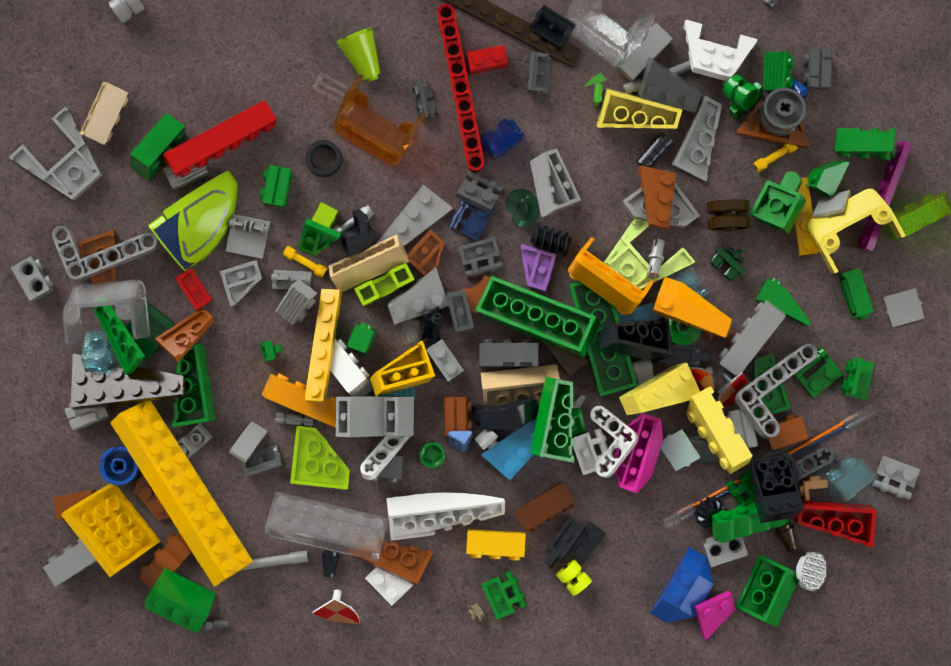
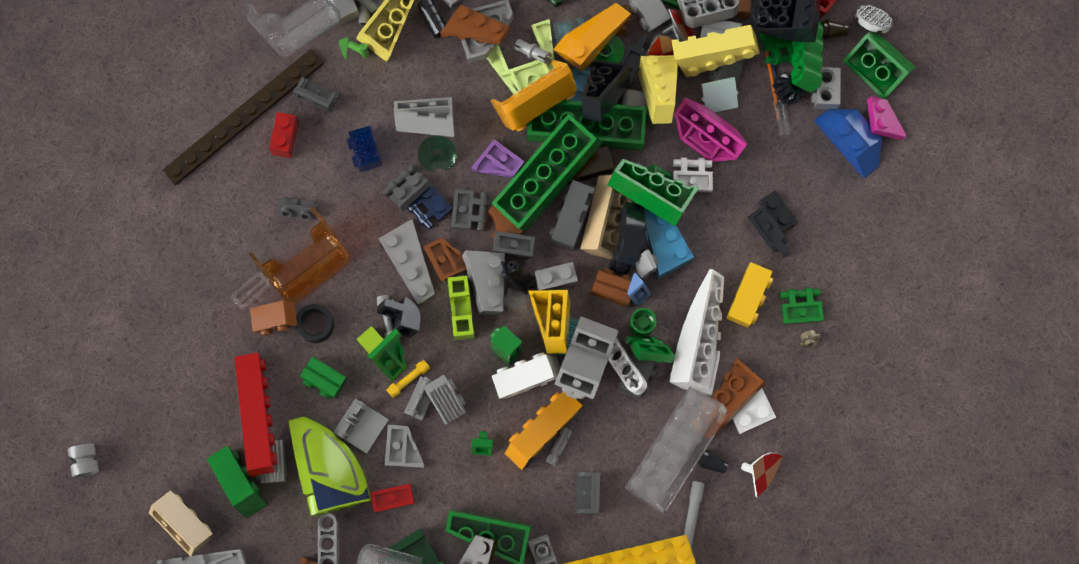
camera: 70 degrees left, 10 degrees down
(185, 334) = (434, 520): dark orange wing -> none
(248, 441) = (565, 498): light grey slope -> none
(313, 119) = (273, 317): none -> brick
(317, 462) = (608, 438): lime plate -> none
(323, 346) = (498, 387): yellow plate -> none
(361, 53) = (228, 248): lime cone -> none
(368, 264) = (435, 316): tan brick -> none
(409, 470) = (650, 349): none -> green plate
(457, 79) = (293, 164): red beam -> none
(545, 507) = (730, 236): reddish brown brick -> none
(551, 239) = (477, 138): black piece -> none
(552, 26) = (277, 64): black hinge -> none
(572, 571) = (801, 232): neon yellow wheel -> none
(619, 442) = (694, 145): white beam -> none

